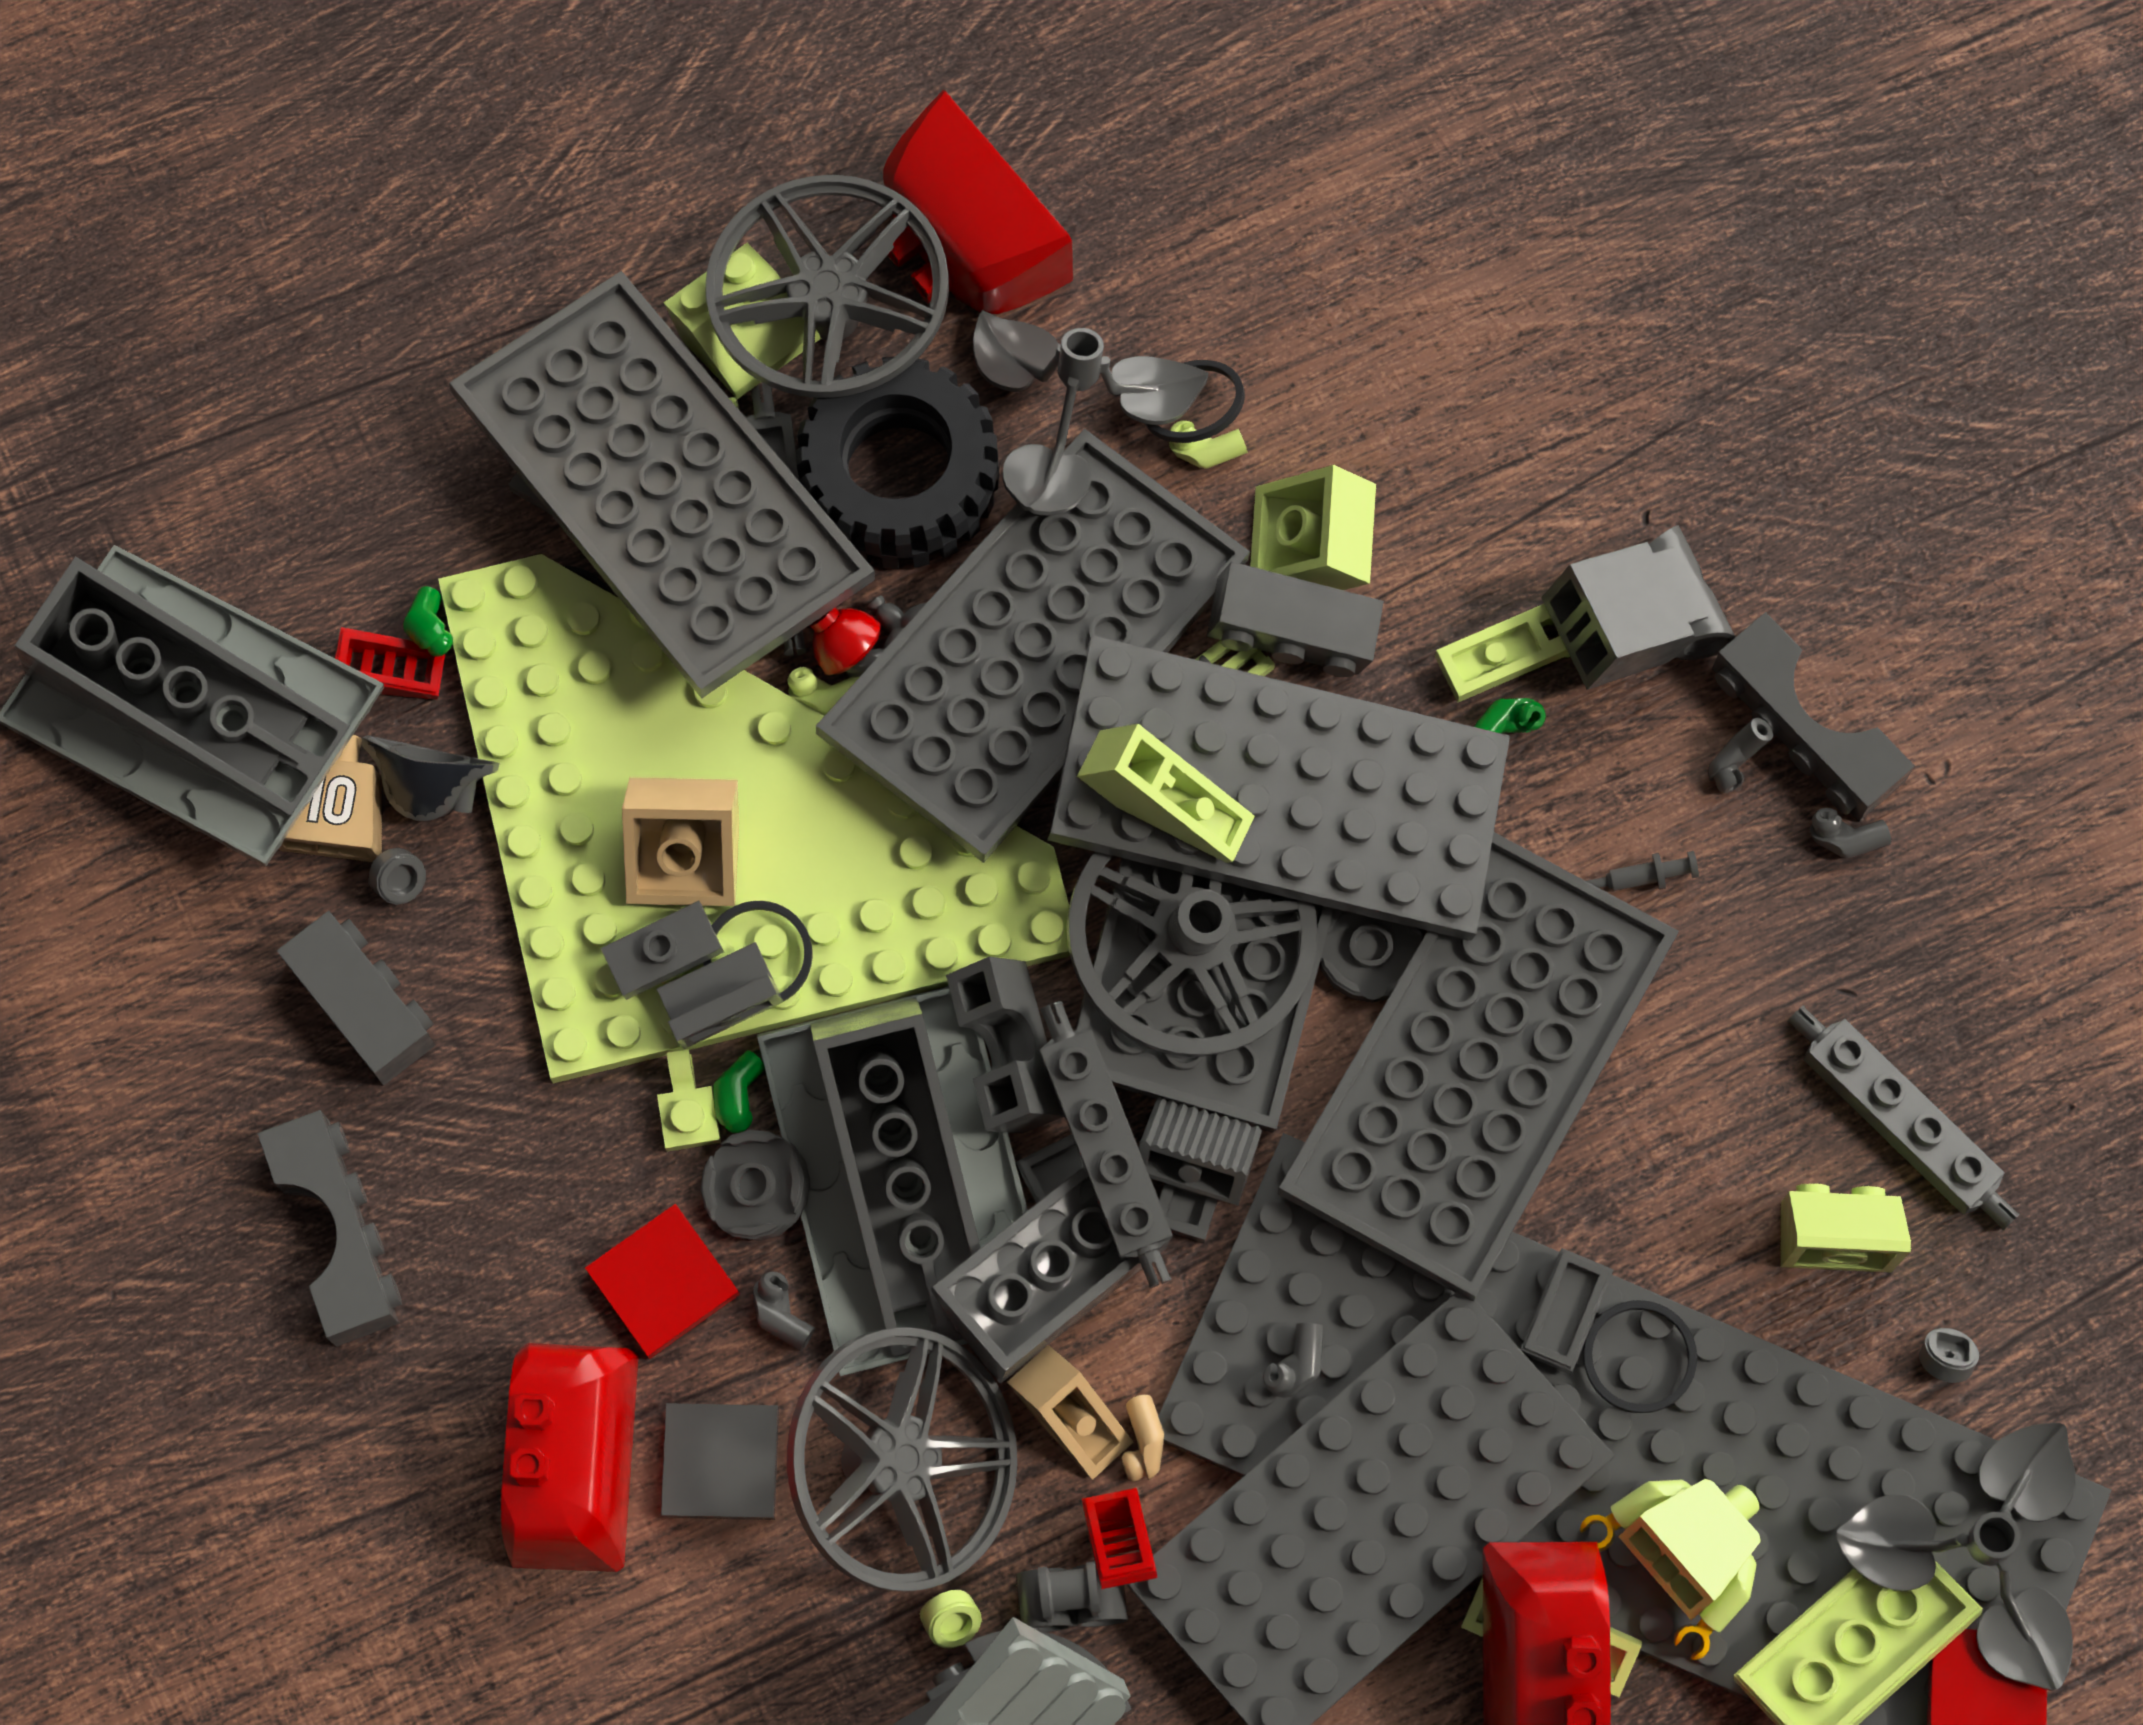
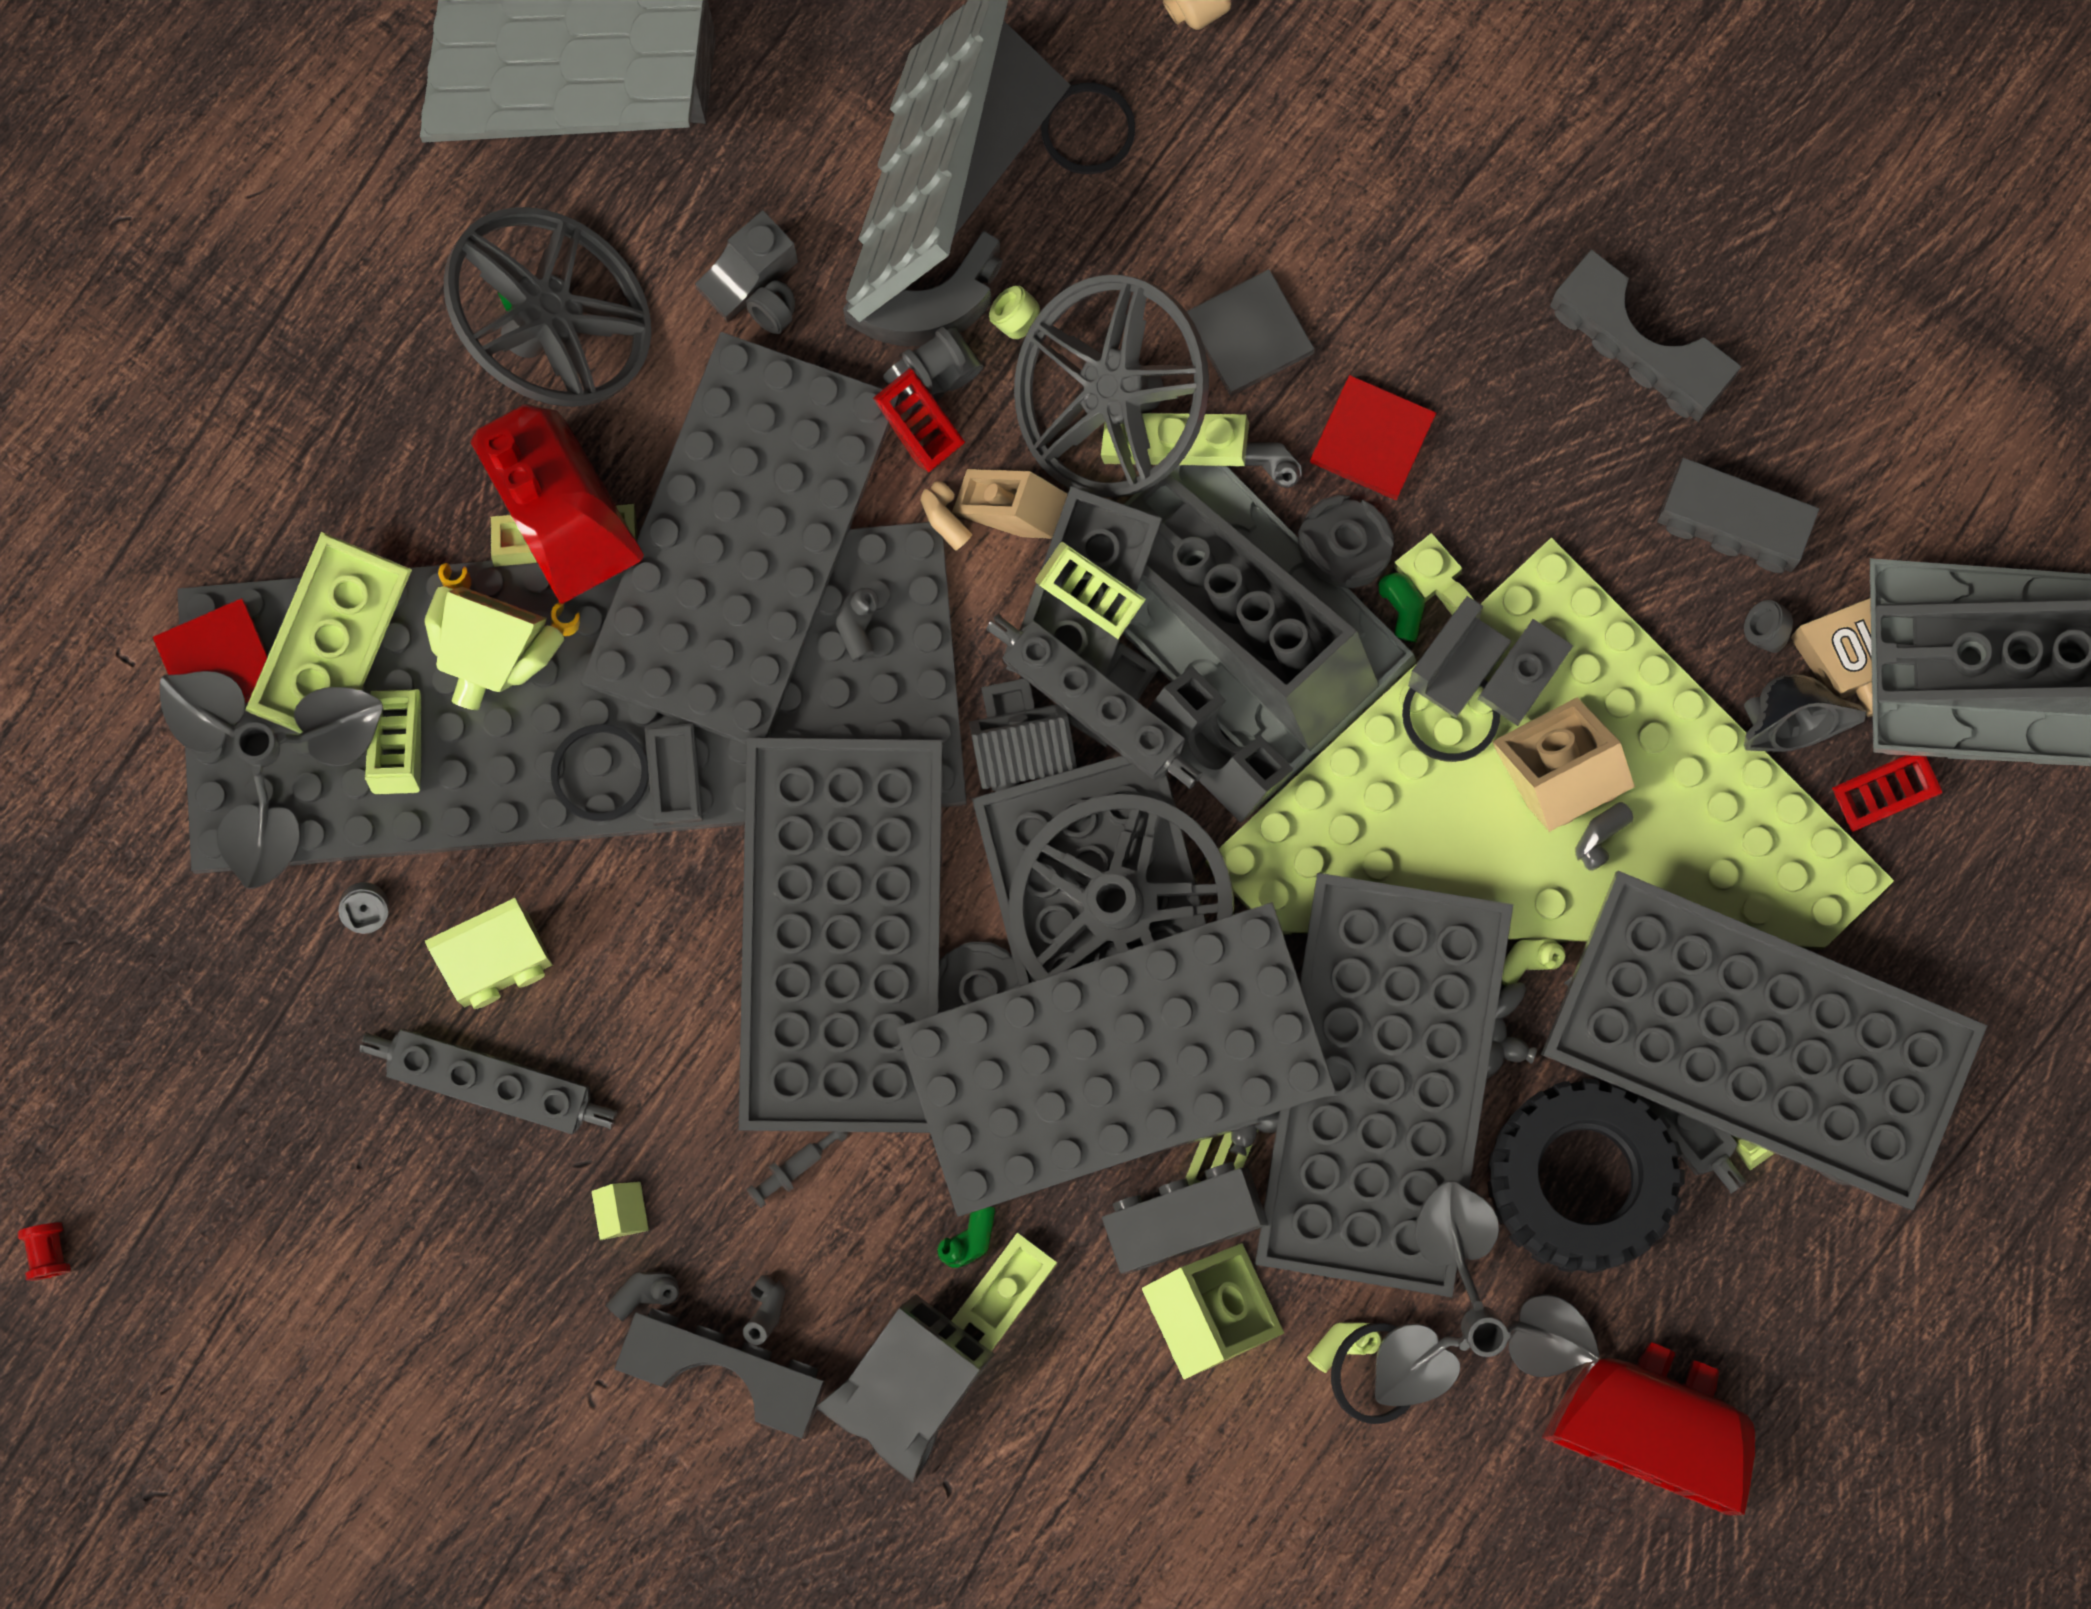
camera: 150 degrees right, 5 degrees up
(424, 626) = (1880, 832): green arm -> none
(568, 1457) = (1365, 273): red hips -> none
(685, 761) = (1598, 831): none -> dark grey arm
(769, 342) = (1788, 1229): yellowish green slope -> none
(827, 289) = (1733, 1282): dark grey wheel -> none
(843, 639) = (1535, 1003): red brick -> none
(864, 1379) = (1219, 441): none -> yellowish green plate
(1062, 1288) = (1055, 565): none -> yellowish green slope
(1164, 790) = (1197, 977): yellowish green slope -> none
(1818, 1493) = (396, 771): none -> yellowish green slope
(1832, 924) = (620, 1210): none -> yellowish green slope

